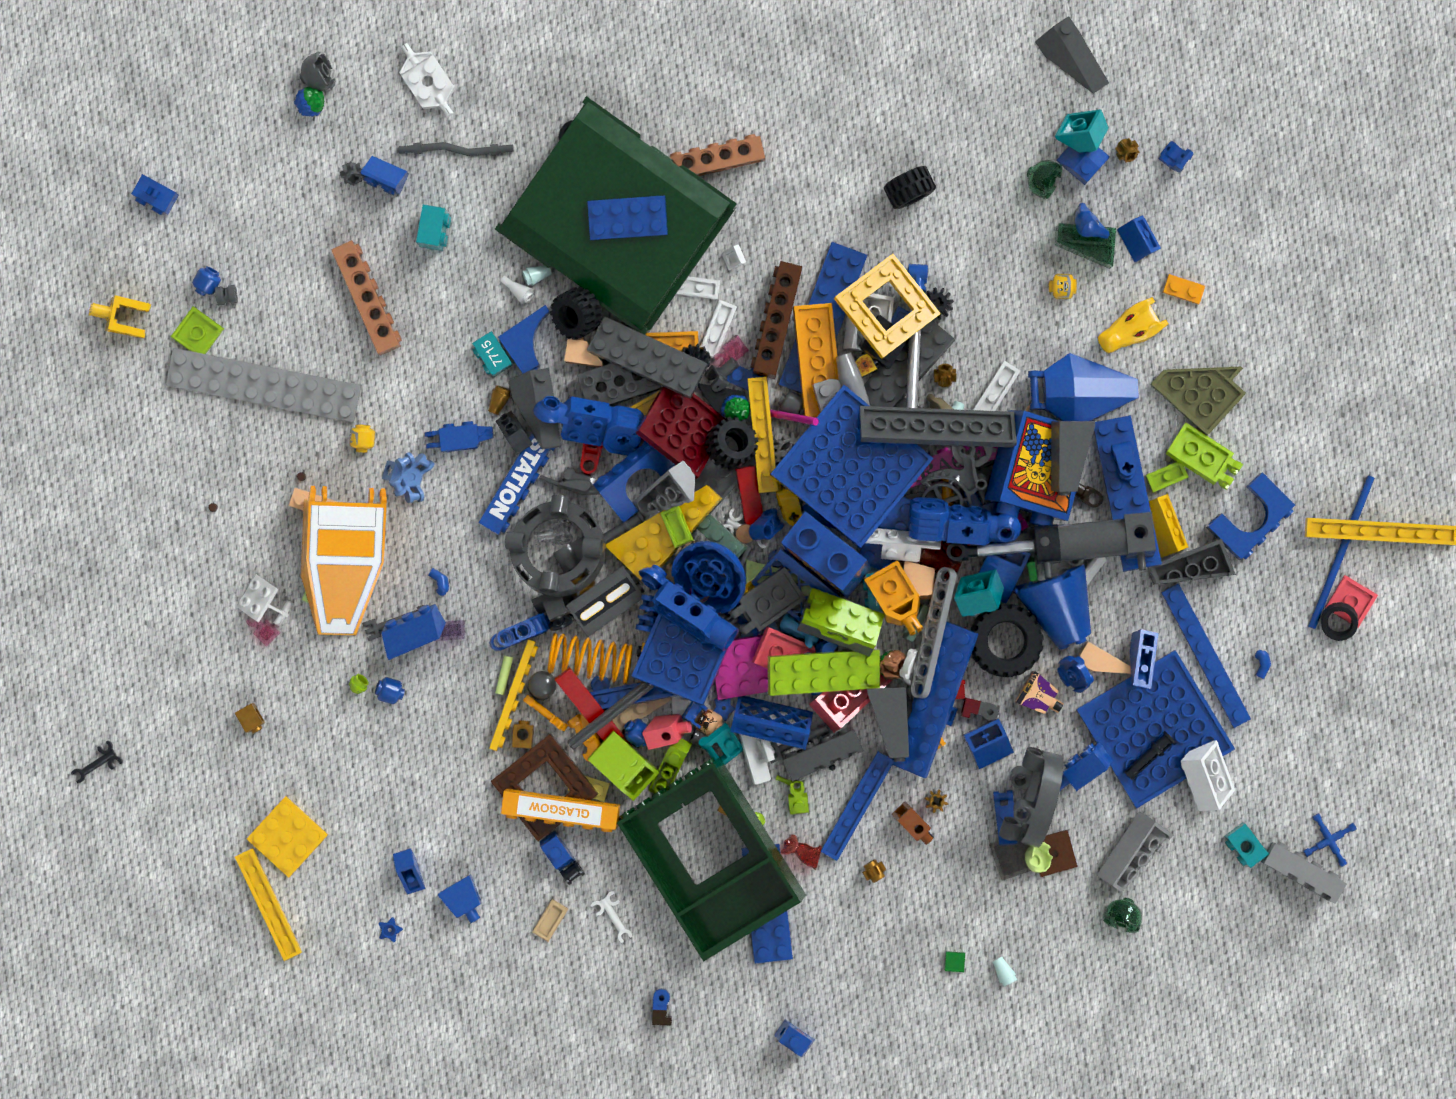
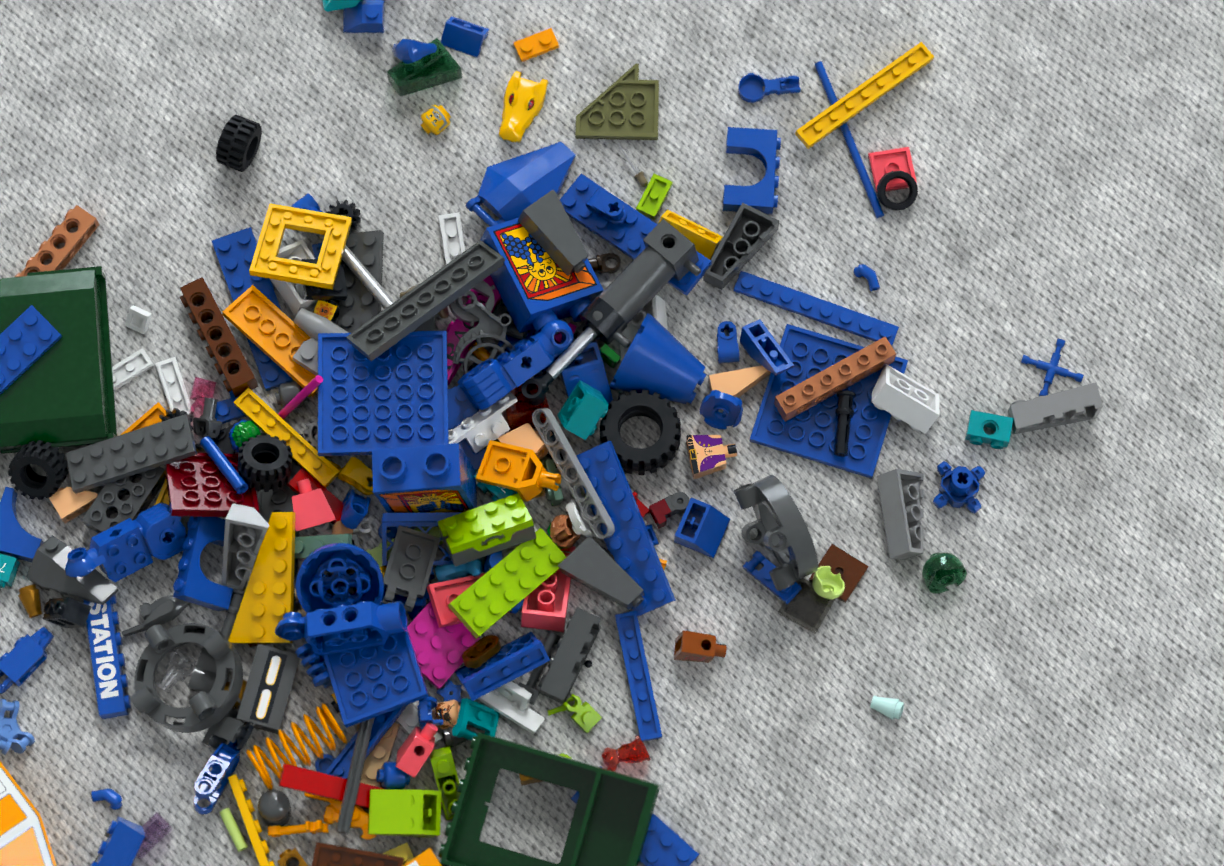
camera: 45 degrees left, 15 degrees down
(590, 455) = (151, 578): red piece -> none
(676, 526) = (276, 567): lime tile -> none
(703, 419) = (223, 465): none -> blue piece
(737, 501) = (310, 507): none -> coral torso
(762, 701) = (481, 651): none -> pearl gold plate
(874, 871) = (701, 717): pearl gold gear -> none
(930, 799) = (698, 607): pearl gold gear -> none
(945, 375) = (399, 266): pearl gold gear -> none
(954, 961) = (838, 735): green tile -> none
(1043, 177) = (343, 48): clear green cylinder -> none
(1086, 766) = (799, 473): blue brick -> none
(1119, 631) = (727, 345): none -> blue piece
(1172, 721) = (834, 379): none -> nougat brick
(1180, 866) = (959, 487): none -> blue piece
(1203, 456) = (670, 155): lime tile -> none
(1308, 453) = (752, 86): none -> blue piece

